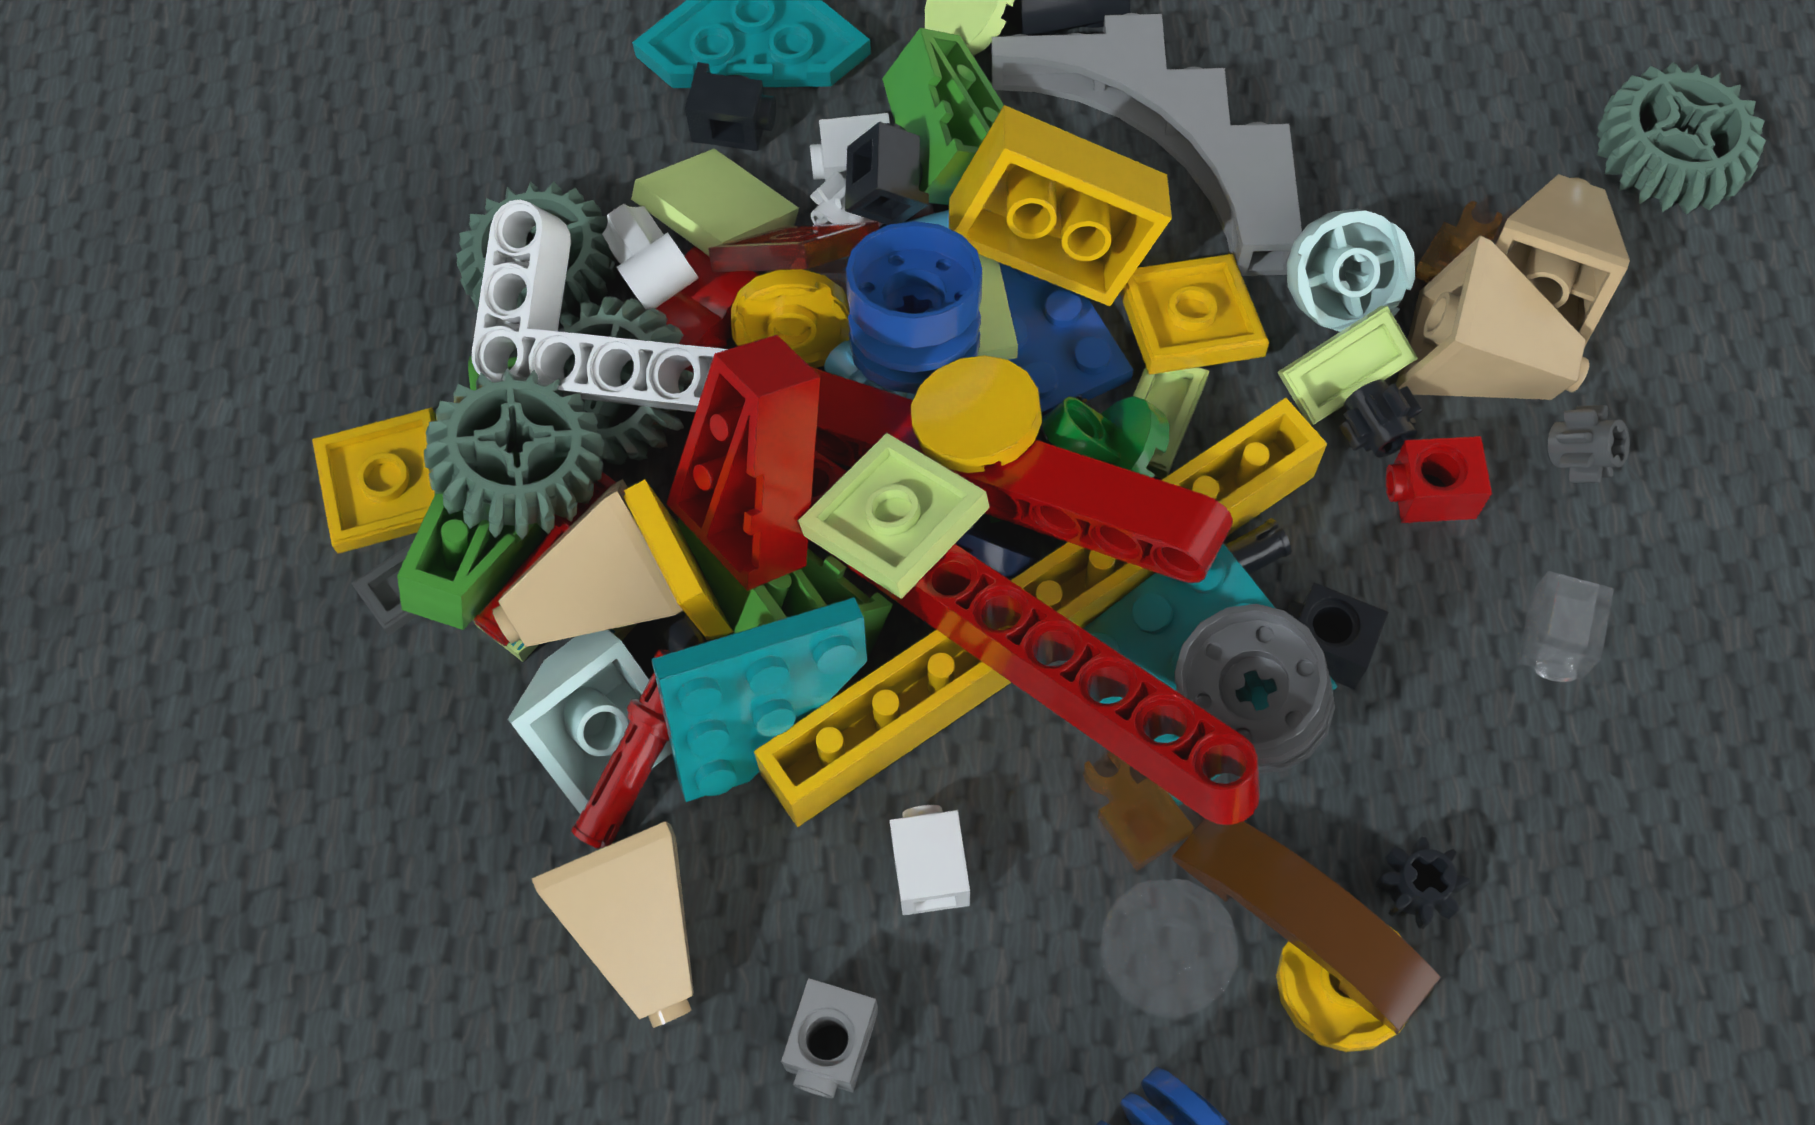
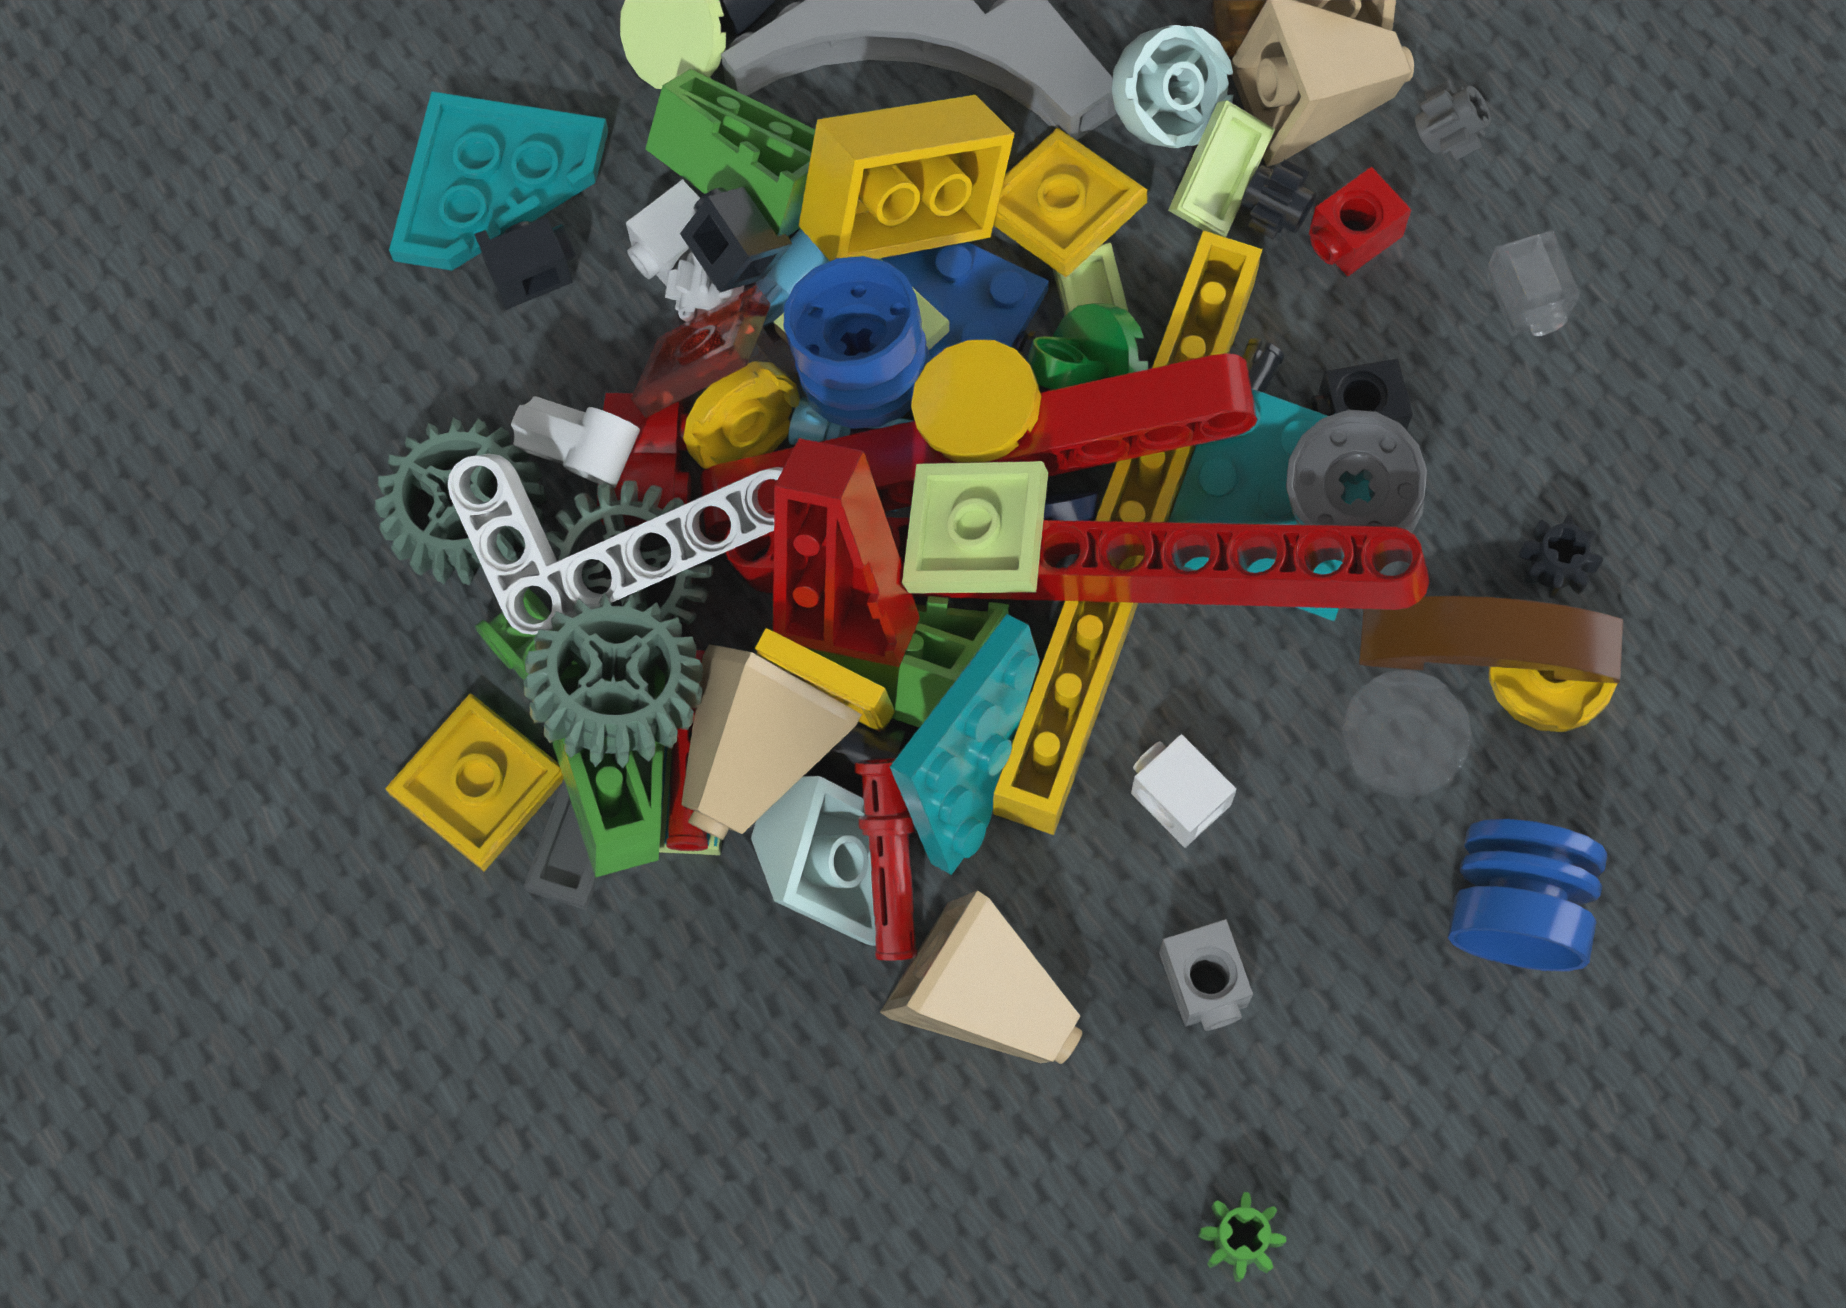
camera: 35 degrees left, 5 degrees up
(712, 201) = (584, 354): yellowish green tile -> none
(1139, 815) = (1316, 646): clear orange plate -> none

